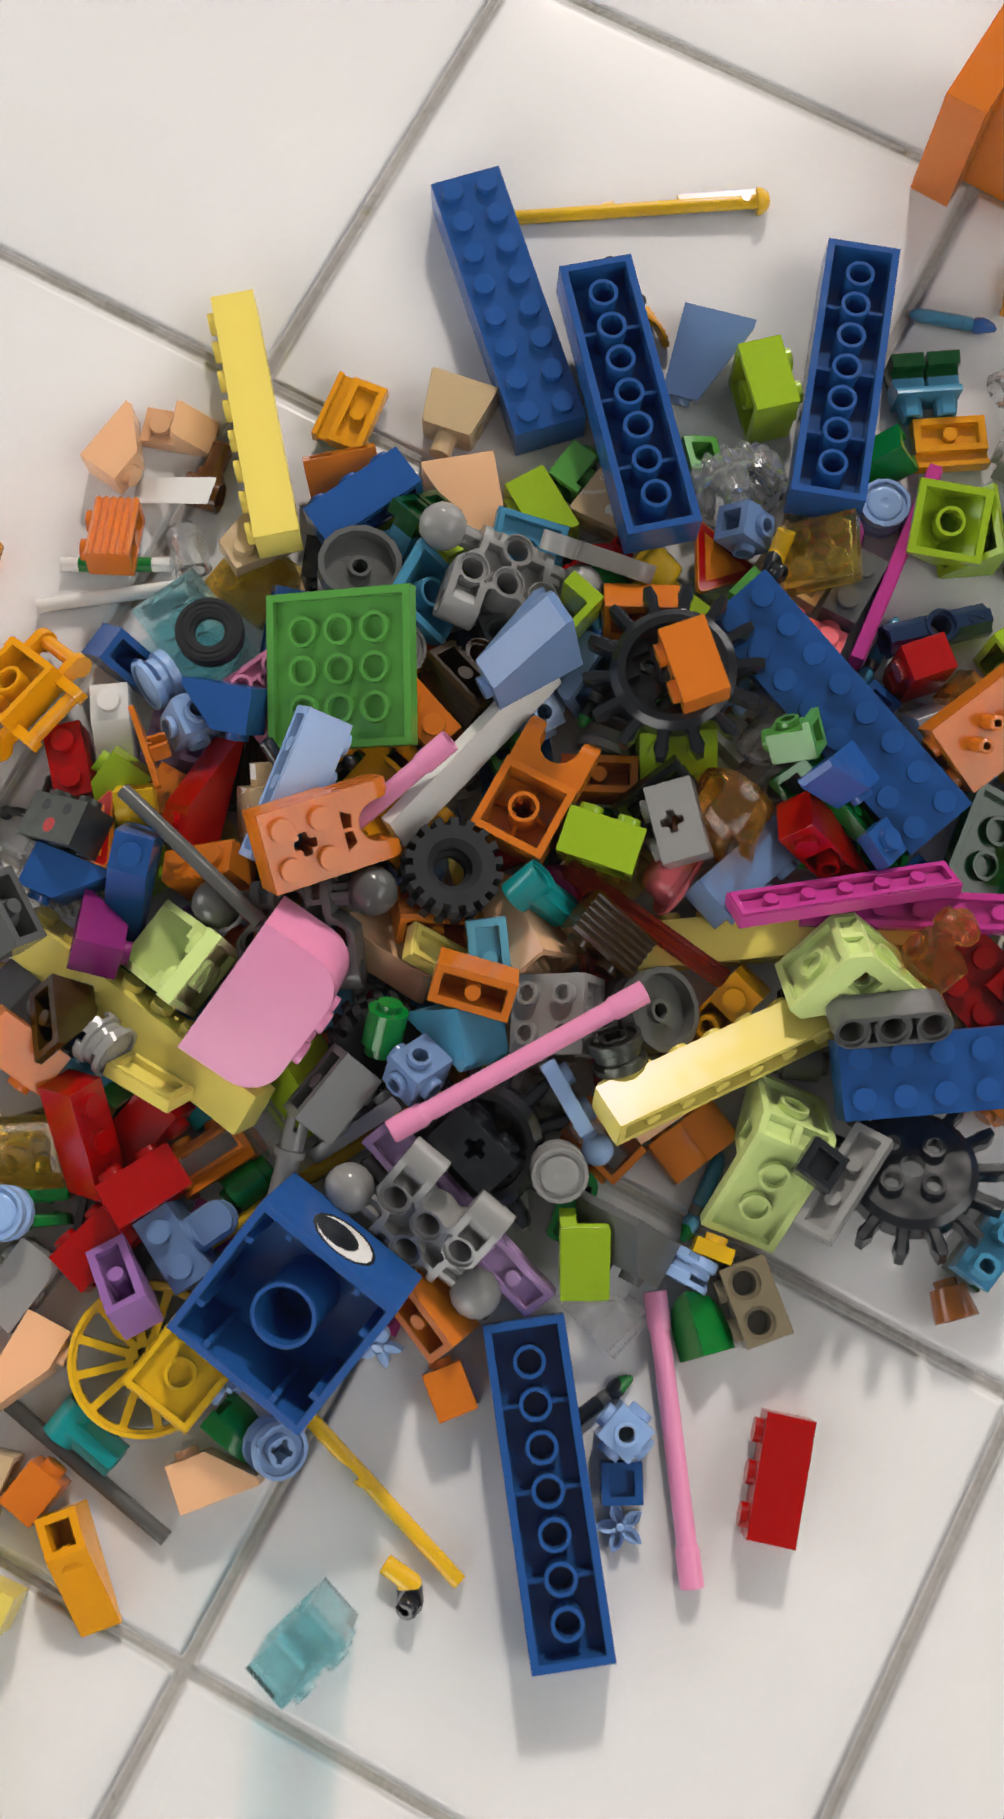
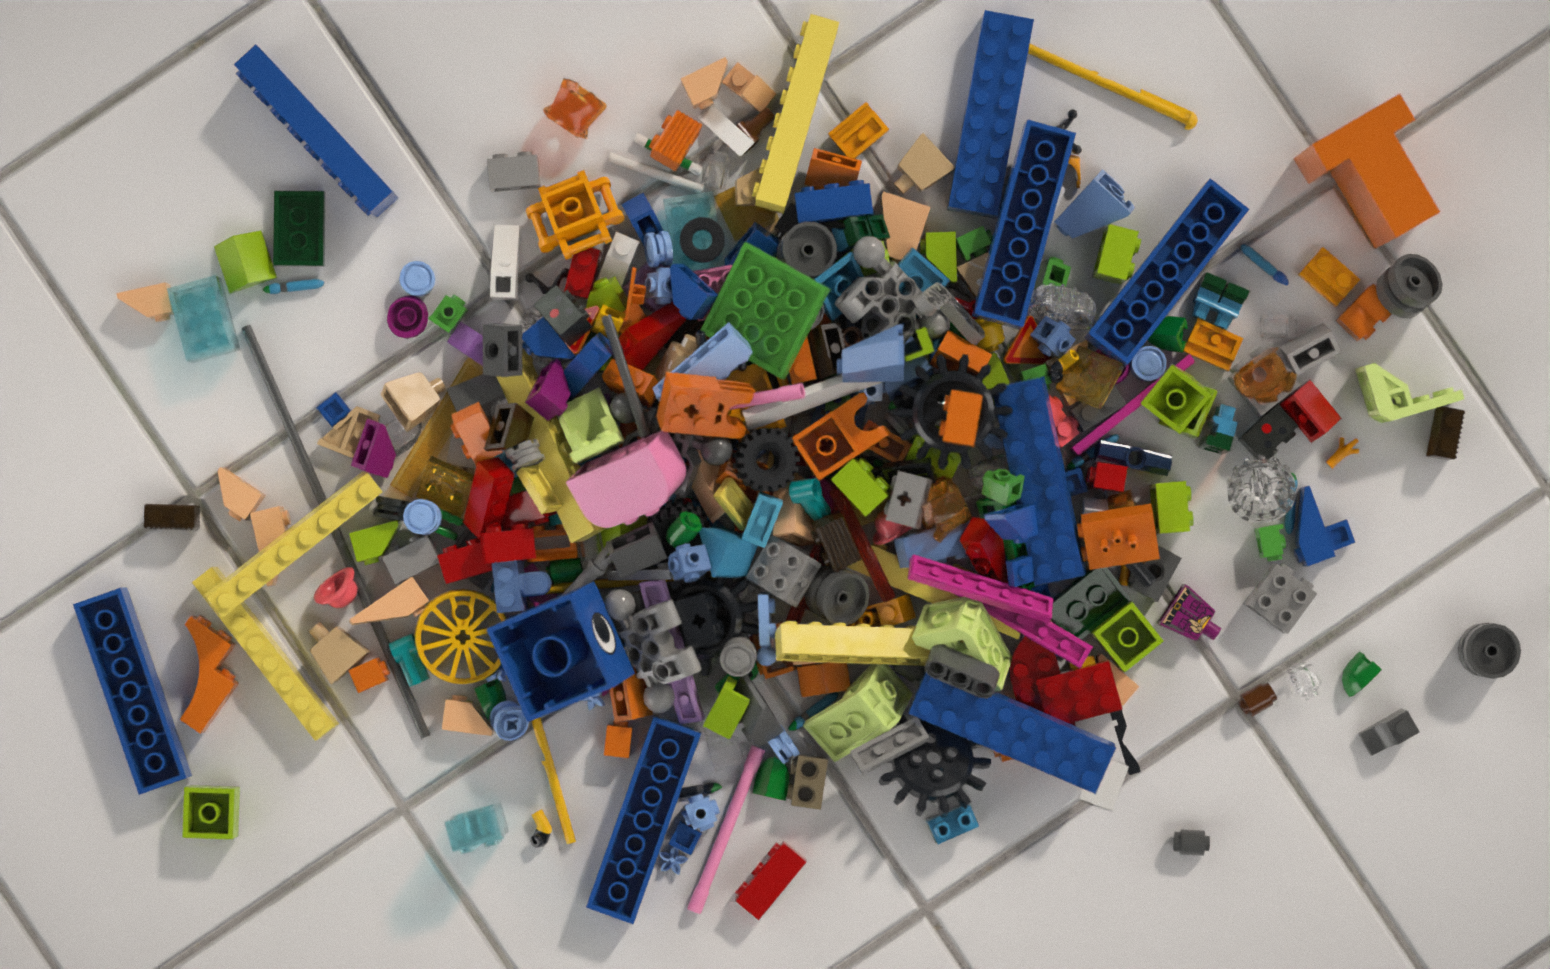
camera: 25 degrees right, 10 degrees up
(79, 1567) = (374, 727): light orange slope -> none
(123, 1287) = (471, 593): medium lavender slope -> none
(174, 1380) = (475, 656): yellow plate -> none
(422, 1114) = (813, 586): bright pink piece -> none
(473, 984) = (744, 533): orange brick -> none
(617, 1051) = (804, 609): pearl dark grey wheel -> none
(713, 1248) = (803, 741): yellow plate -> none
(820, 1165) = (881, 729): black tile -> none
(933, 954) = (1016, 648): clear orange brick -> none
(951, 1301) = (917, 839): dark orange hat -> none

